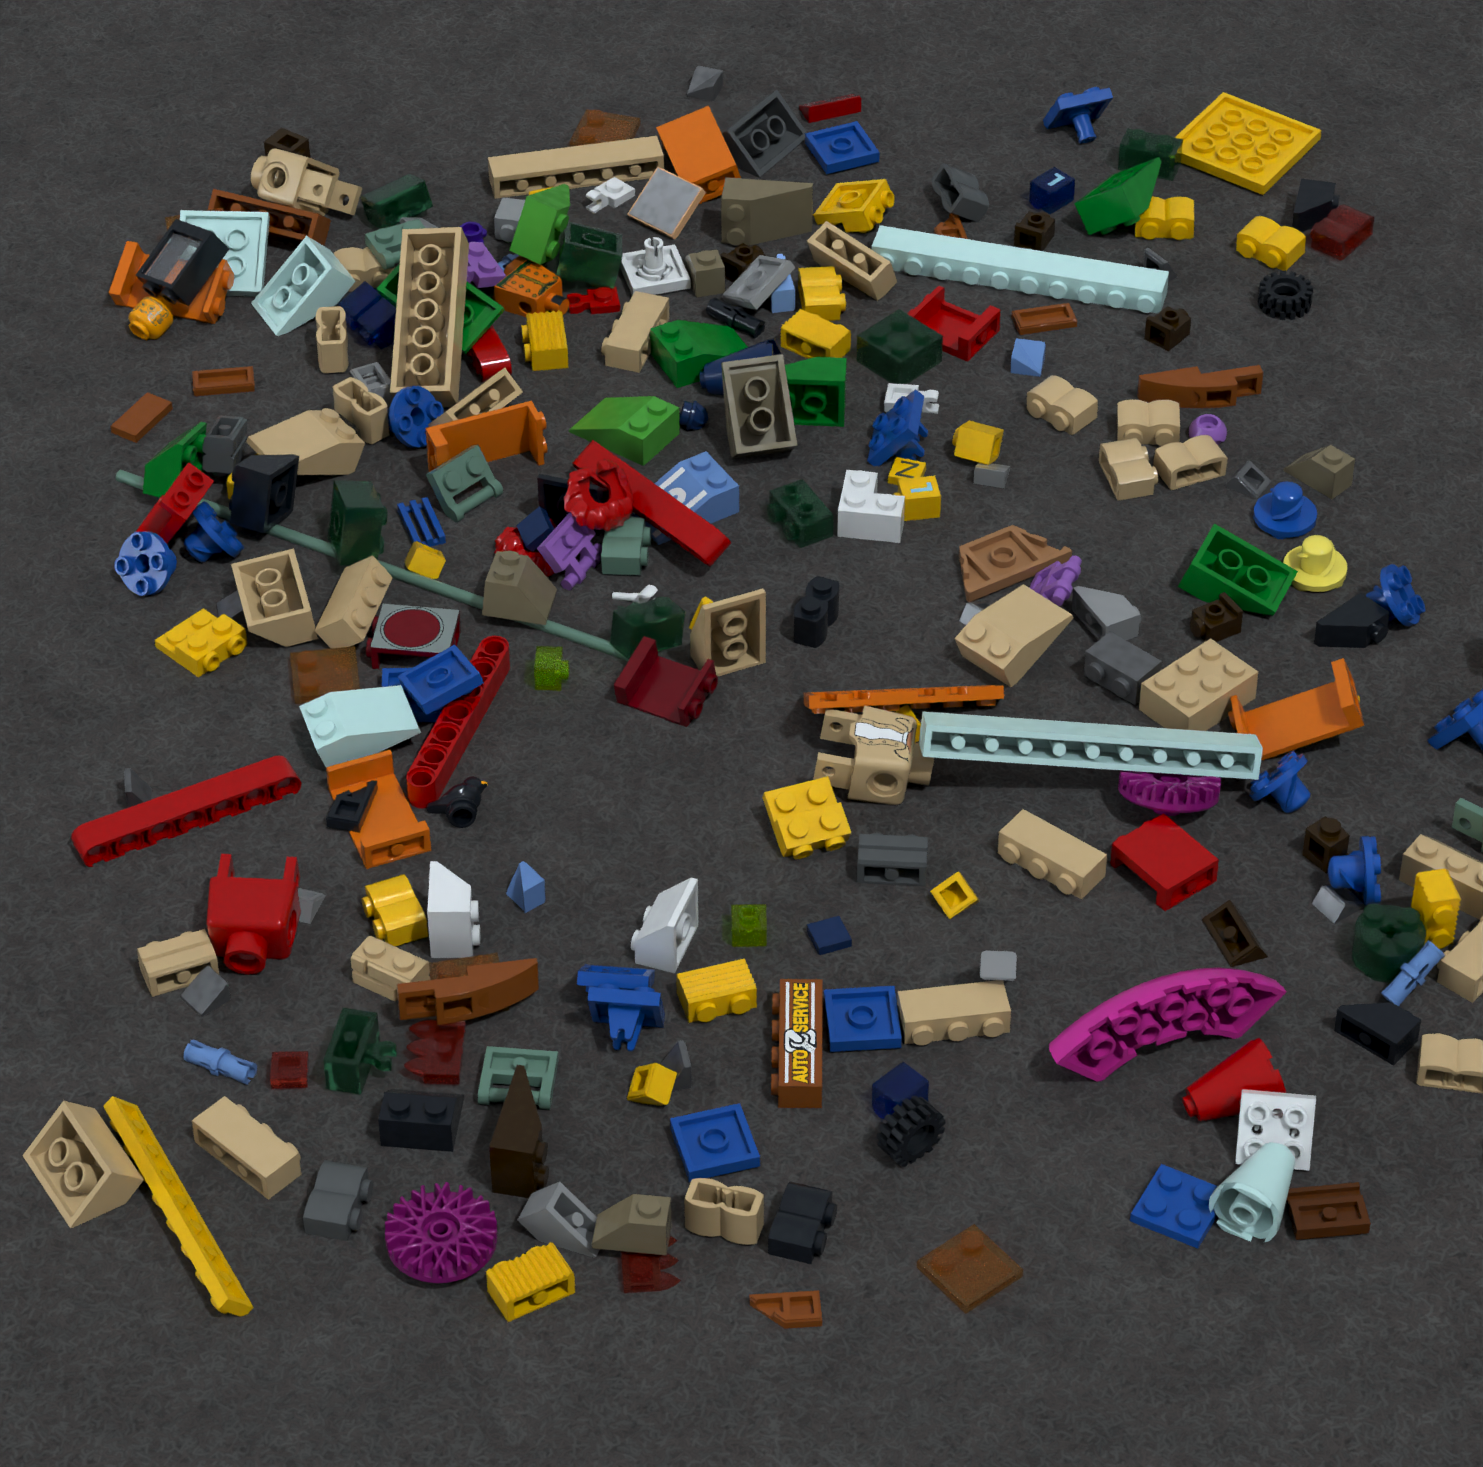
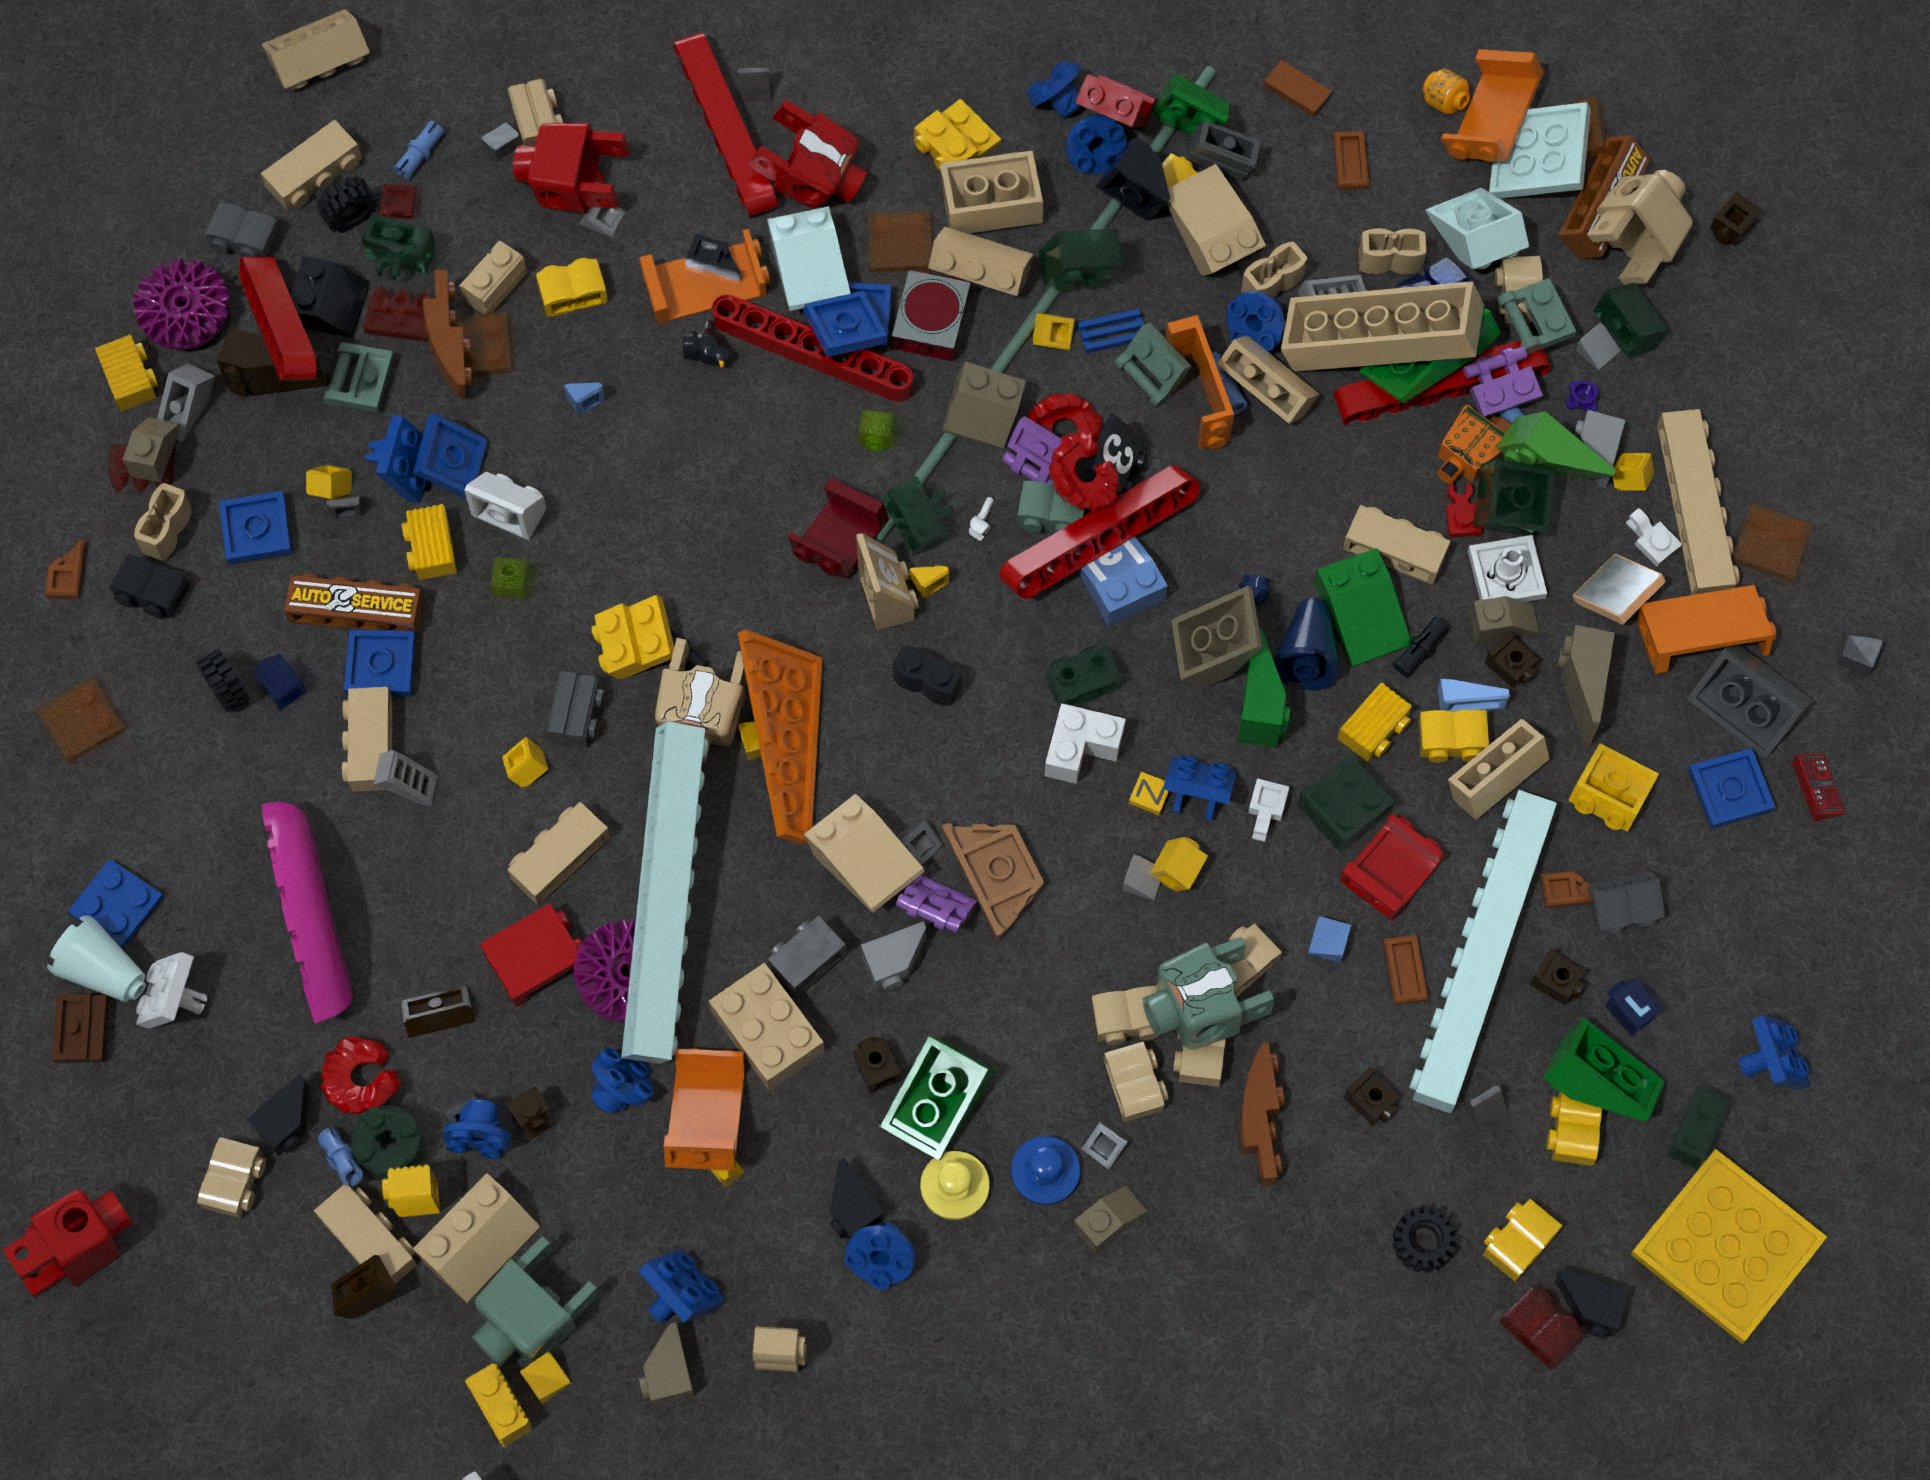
camera: 95 degrees right, 25 degrees up
(178, 1208) = (258, 115): yellow plate -> none
(181, 263) = (1498, 104): black window -> none
(231, 726) = (818, 163): none -> red piece
(304, 1098) = (347, 204): none -> black tyre
(451, 915) = (545, 321): white slope -> none
(468, 1122) = (277, 318): none -> red beam
(535, 528) = (1069, 422): dark blue tile -> none
(545, 341) = (1387, 456): yellow brick -> none
(631, 426) = (1241, 525): bright green slope -> none
(758, 282) = (1460, 666): light grey plate -> none
(829, 935) = (493, 647): dark blue tile -> none
(921, 497) = (1096, 794): yellow brick -> none
(1113, 396) = (1199, 996): none -> sand green piece
(1208, 425) = (1193, 1124): medium lavender plate -> none
(1219, 1090) = (229, 973): red cone -> none
(1336, 991) = (338, 1070): none -> red piece

